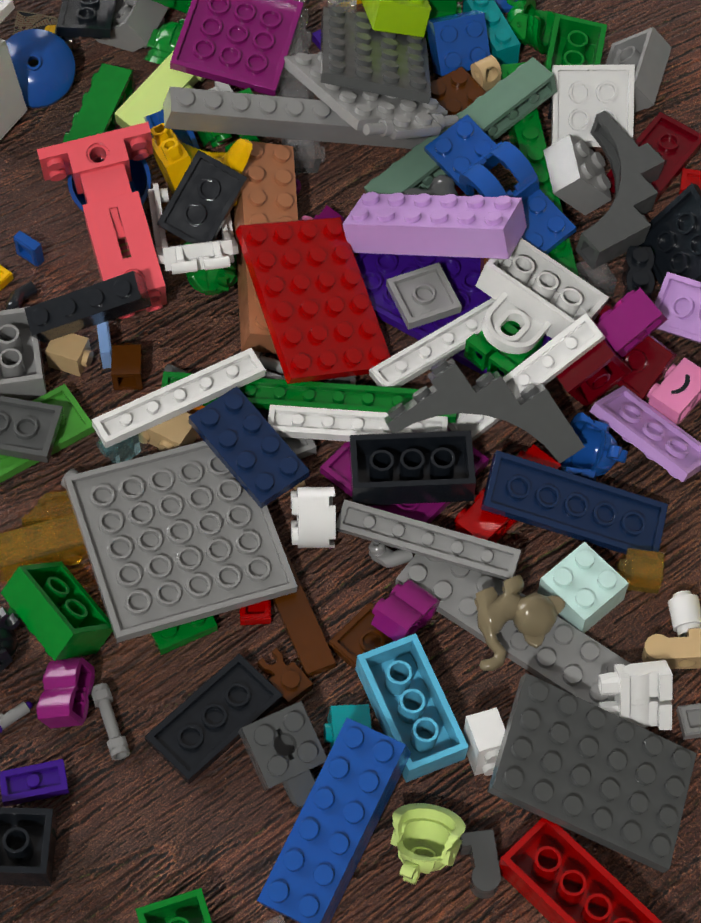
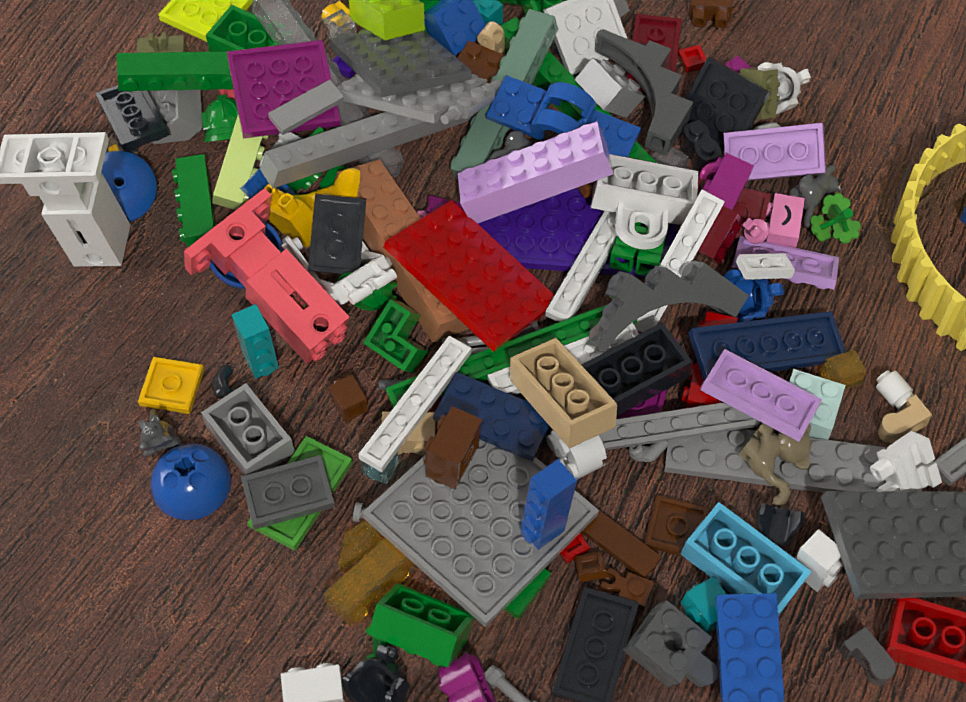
camera: 25 degrees left, 0 degrees up
(28, 248) = (205, 338): blue tile -> none
(64, 262) = (255, 341): none -> teal brick
(69, 354) = (293, 408): tan brick -> none
(88, 307) = (298, 363): black brick -> none
(105, 344) = (313, 382): light blue tile -> none
(182, 454) = (452, 447): none -> reddish brown brick
(202, 324) = (391, 335): none -> green brick
(229, 548) = (548, 504): none -> blue brick
(246, 62) = (306, 107): none -> light grey tile
(259, 638) = (590, 566): none -> reddish brown tile
(322, 452) = (563, 392): none -> tan brick
(404, 610) = (691, 489): magenta brick -> none
(423, 296) = (551, 233): light grey plate -> none
(425, 838) = (821, 659): yellowish green helmet -> none
(470, 689) = (778, 523): none -> black brick
(525, 548) = (761, 395): none -> lavender plate
(616, 423) = (765, 266): none -> white plate
(639, 385) = (755, 230): none -> bright pink plate

